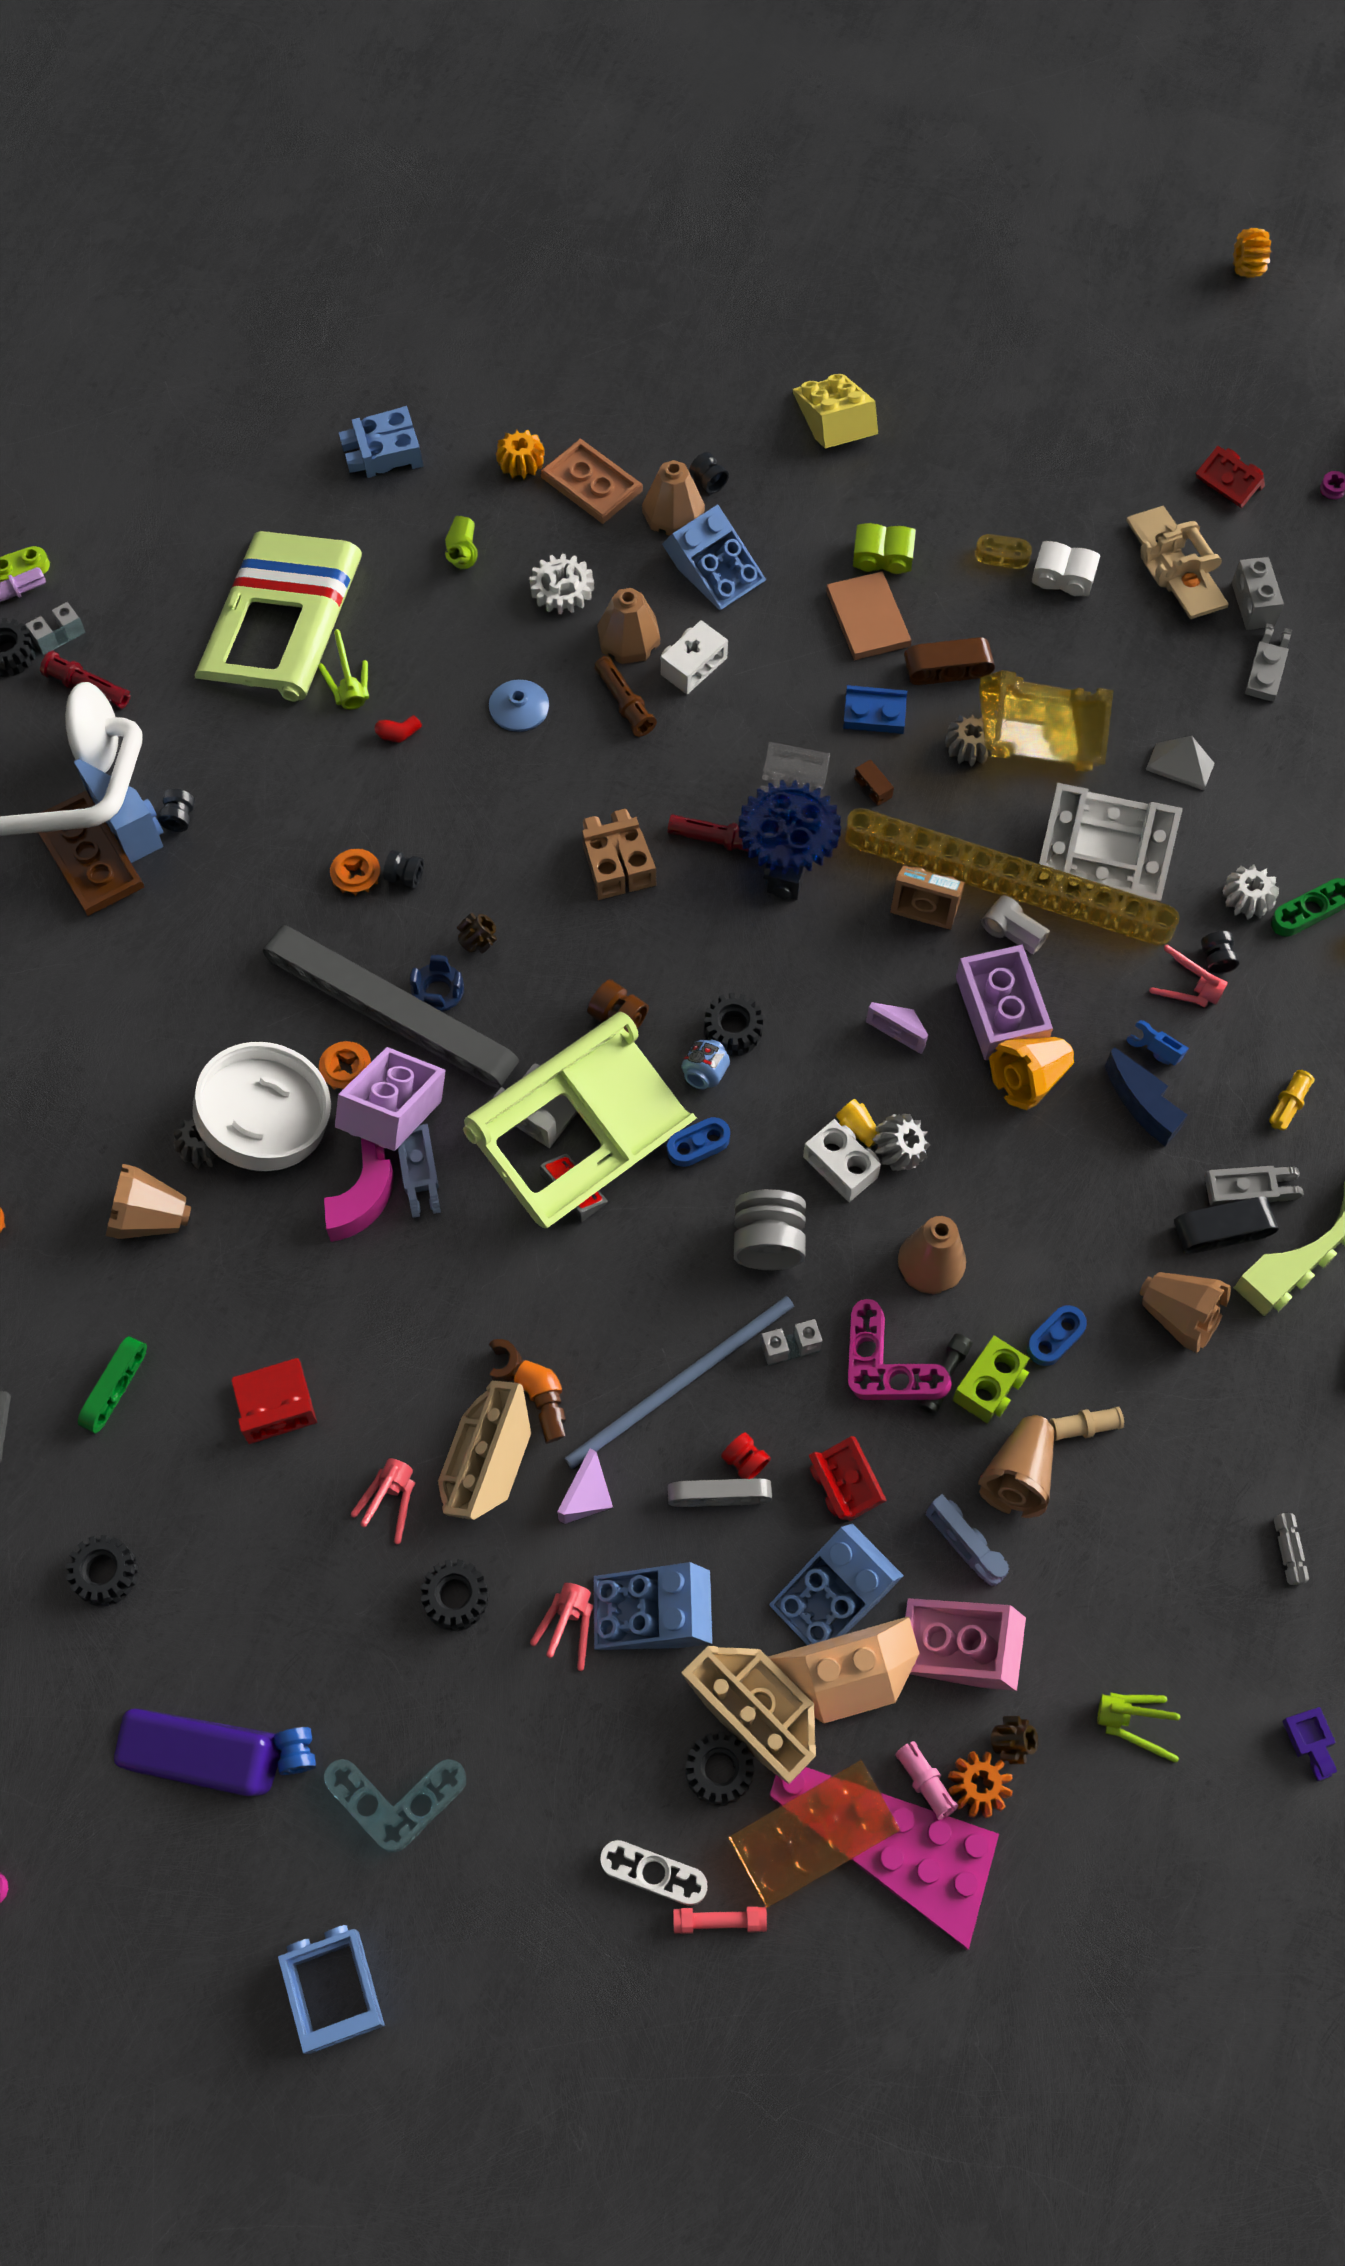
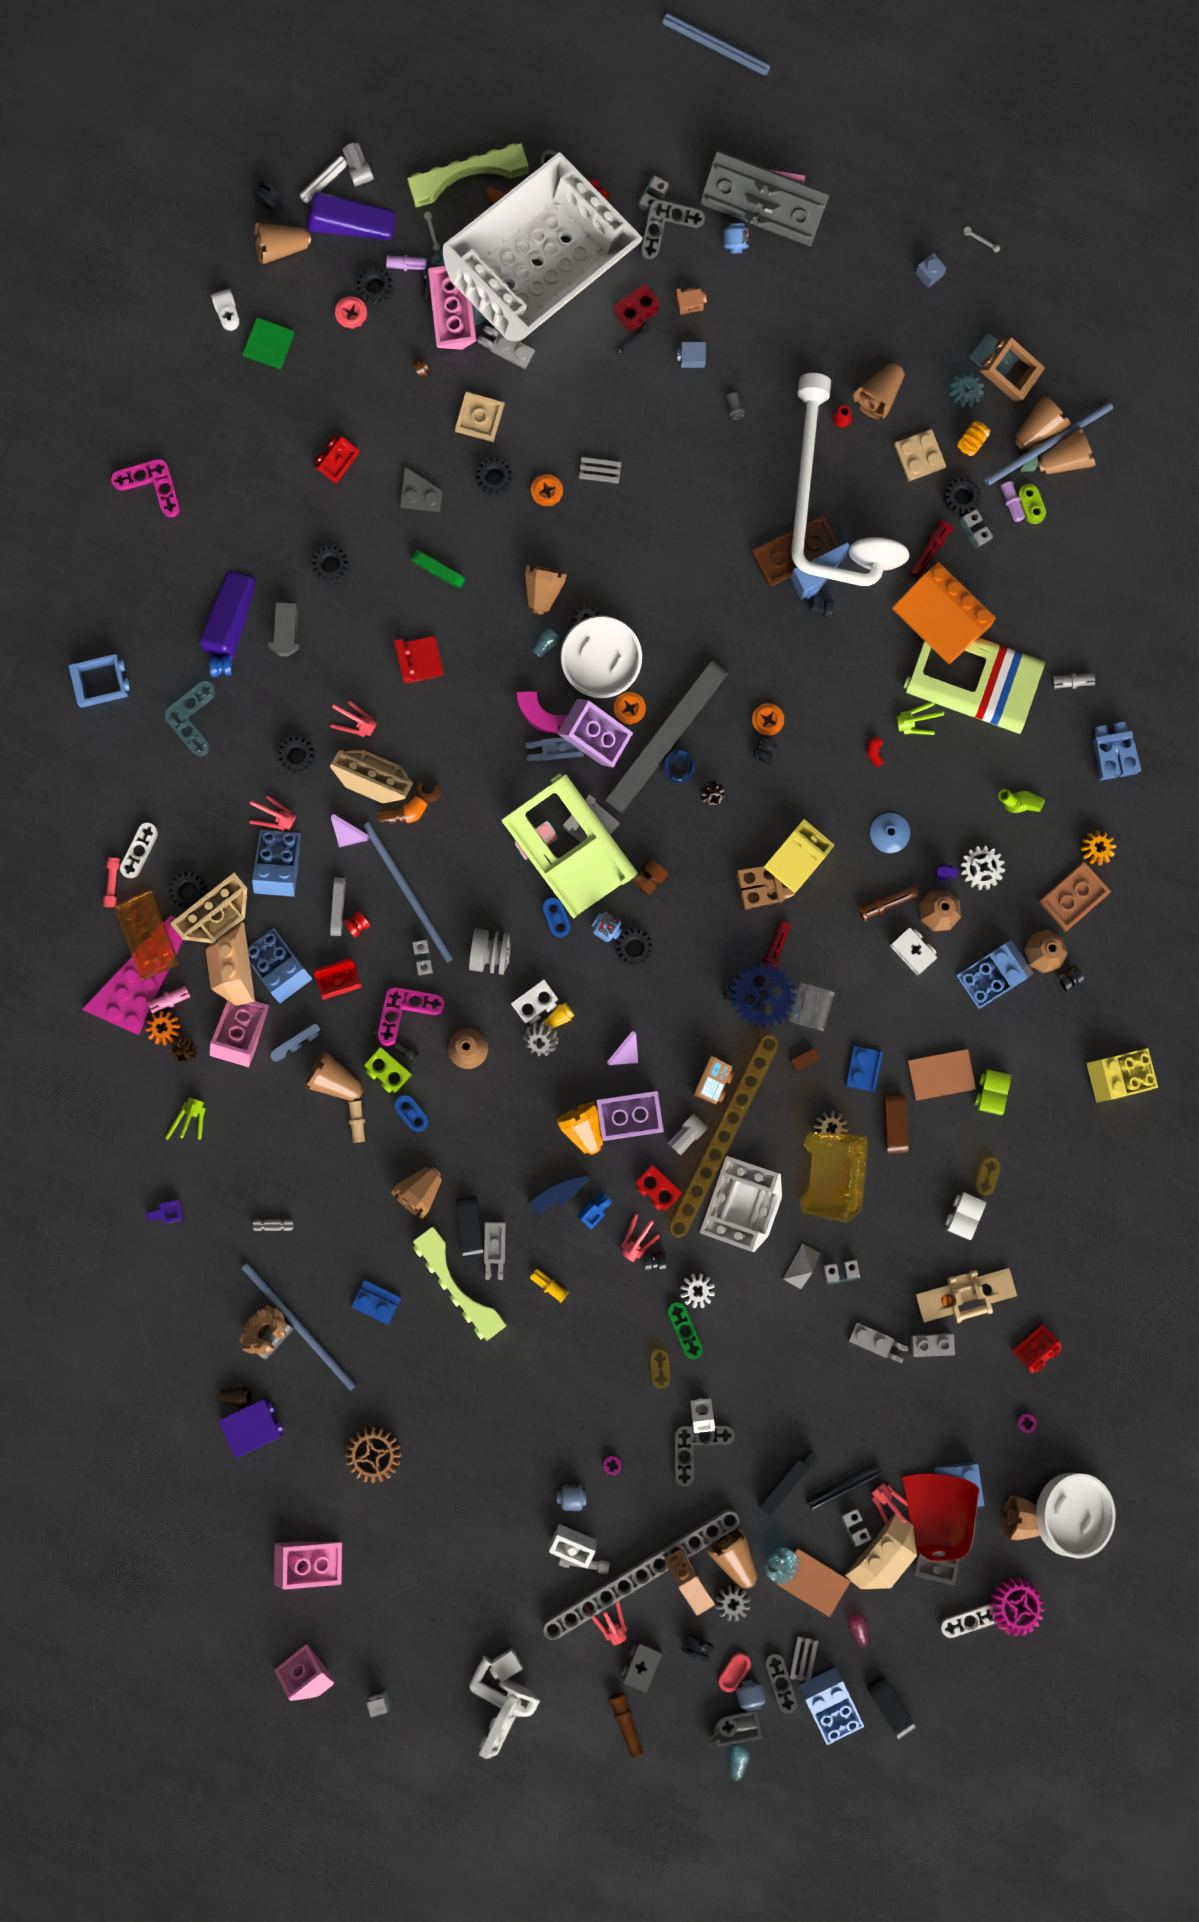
camera: 90 degrees right, 20 degrees up
(183, 648) = (944, 613): none -> orange slope
(223, 1635) = (285, 629): none -> dark grey piece
(237, 1198) = (546, 641): none -> clear light blue cone
(280, 498) = (1073, 680): none -> light grey pin
(565, 800) = (799, 856): none -> light yellow slope
(572, 618) = (946, 871): none -> dark purple plate
(1102, 955) = (662, 1183): none -> red brick
(1183, 717) = (834, 1277): none -> flat silver piece

